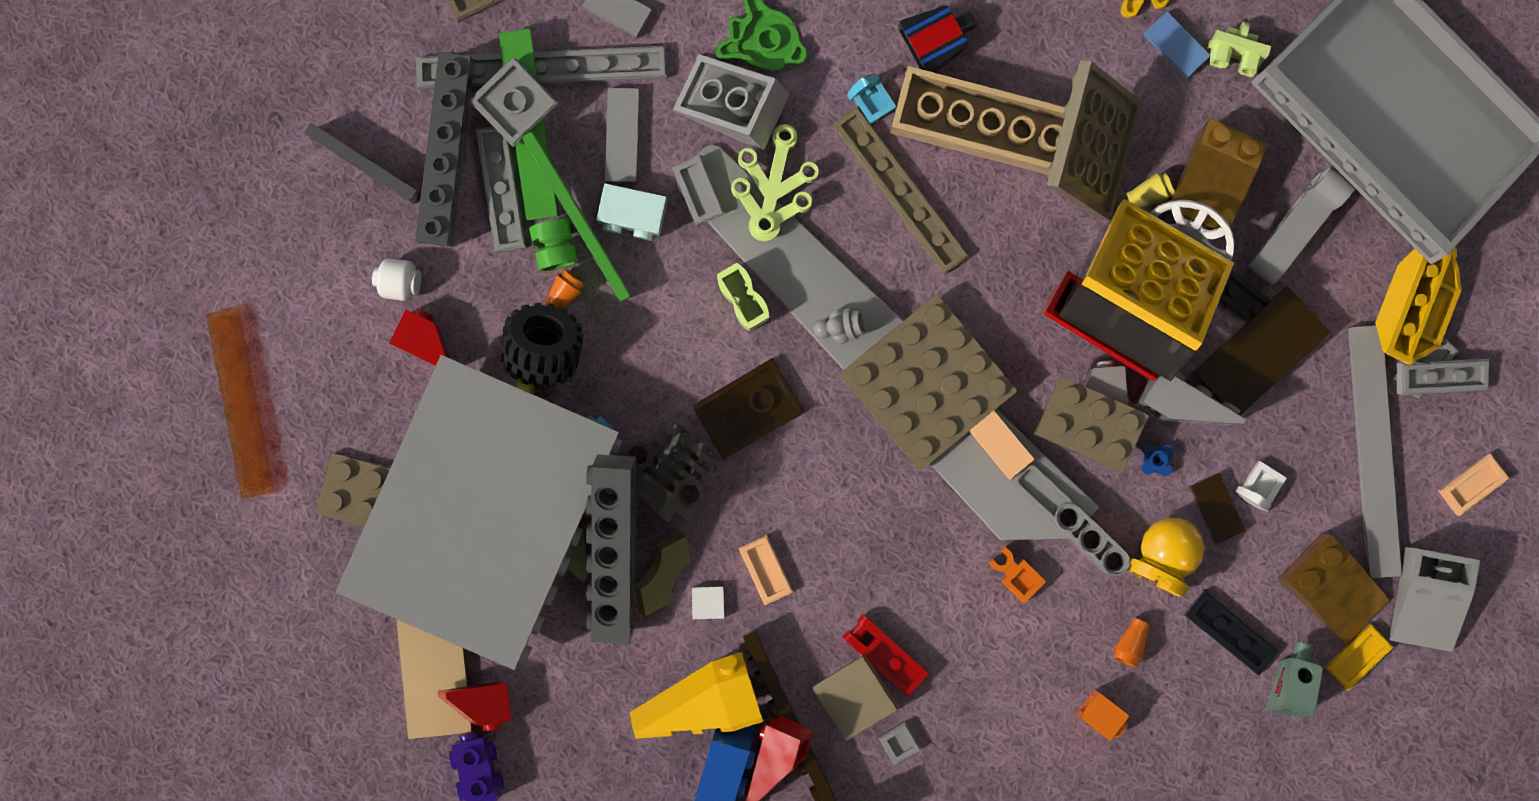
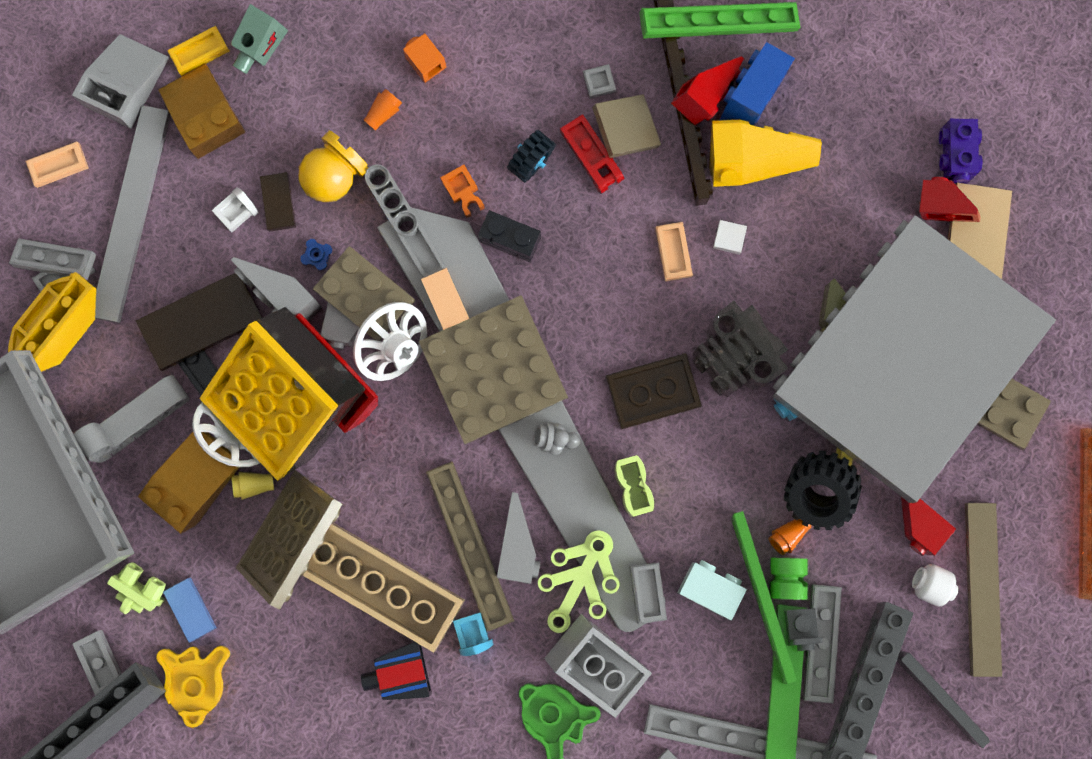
camera: 160 degrees left, 5 degrees down
(343, 290) = (983, 590): none -> dark tan tile
(513, 101) = (795, 717): light grey plate -> none
(526, 195) = (802, 629): none -> dark grey bracket
(620, 475) = (804, 297): dark grey brick -> none
(622, 135) = (702, 662): light grey tile -> none
(656, 586) = (771, 260): olive tile -> none
(848, 199) = (517, 552): none -> light grey slope
(951, 536) = (509, 236): none -> black brick
(952, 631) = (531, 156): none -> black wheel
(1039, 375) = (397, 344): none -> white wheel
(1231, 633) = (298, 97): black tile -> none

